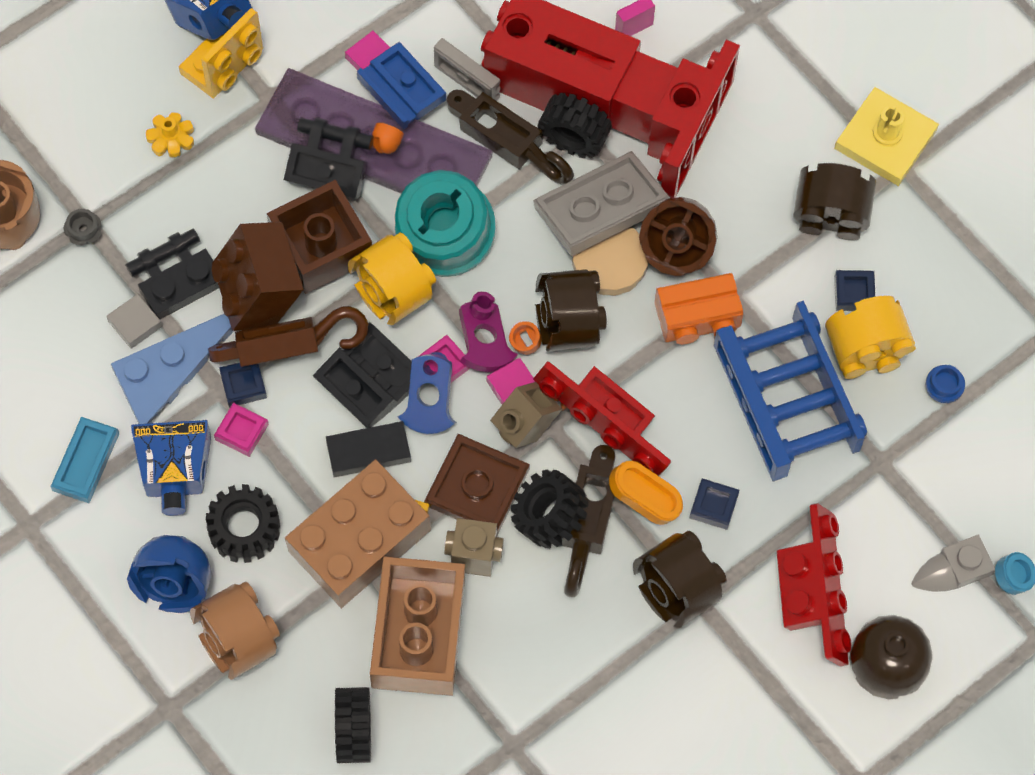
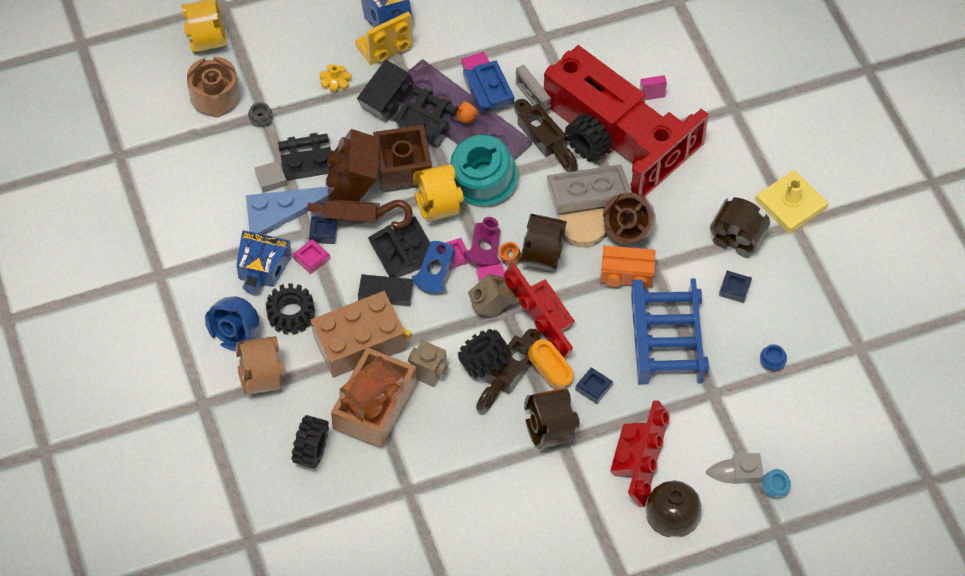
camera: 20 degrees right, 10 degrees down
(85, 460) = (208, 246): dark azure tile -> none
(257, 137) = (386, 91): none -> black brick
(419, 624) = (371, 389): none -> clear orange brick
(476, 482) = (446, 327): reddish brown tile -> none
(870, 336) = (731, 311): yellow brick -> none

